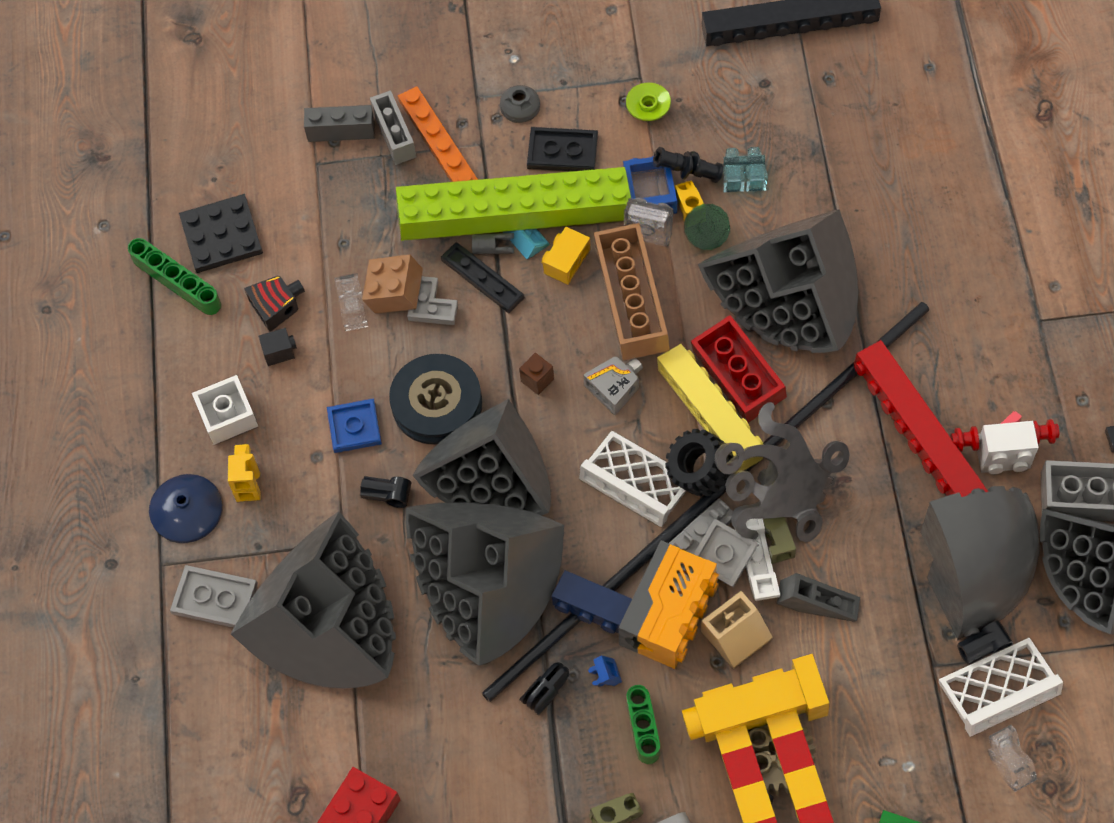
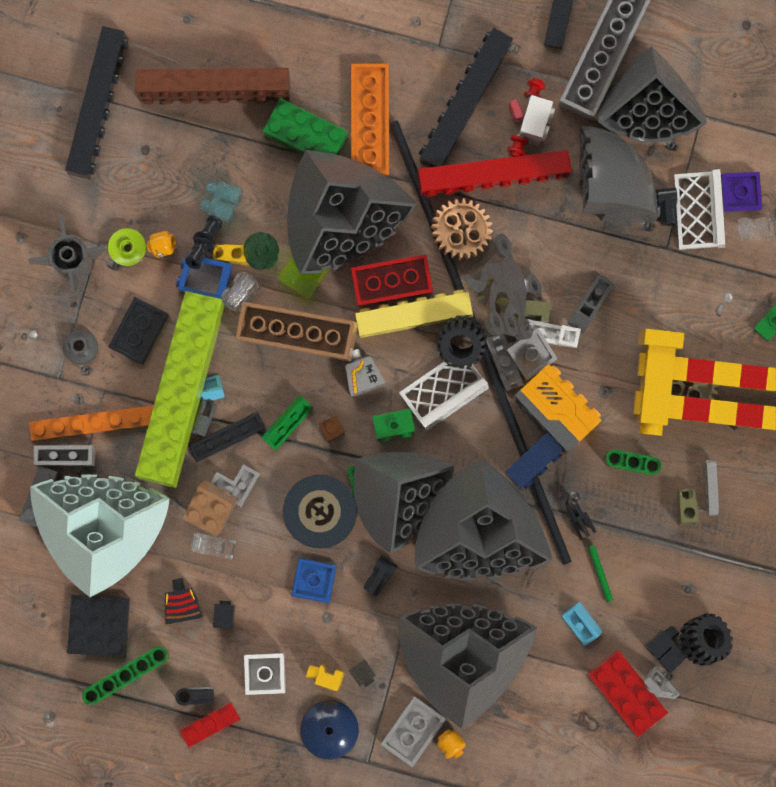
camera: 75 degrees left, 20 degrees up
(149, 382) = (210, 724): none -> red plate
(175, 352) = (198, 695): none -> black piece
(212, 644) = (451, 744): none -> light orange head
(263, 513) = (363, 673): none -> clear smoke brick
(327, 183) = (97, 526): none -> light aqua brick
(418, 744) = (582, 624): none -> medium azure slope
(488, 742) = (600, 573): none -> green bar
(524, 327) = (287, 422): none -> green plate
(566, 255) = (238, 366): yellow brick -> none
(570, 437) = (393, 425): none -> green brick
(606, 670) = (584, 471): blue tile -> none
(608, 44) = (69, 256): none -> dark grey brick
(667, 132) = (161, 244): none -> light orange head
(692, 285) = (301, 283): none -> clear neon green plate
(736, 629) = (591, 370): tan slope -> none
(823, 403) = (445, 231): none -> light nougat gear
(864, 213) = (303, 131): none -> green brick
(868, 110) = (212, 85): none -> copper brick
(918, 279) = (370, 115): none -> orange plate
(995, 368) = (466, 99): none -> black brick
(1049, 726) = (741, 192): none -> dark purple plate

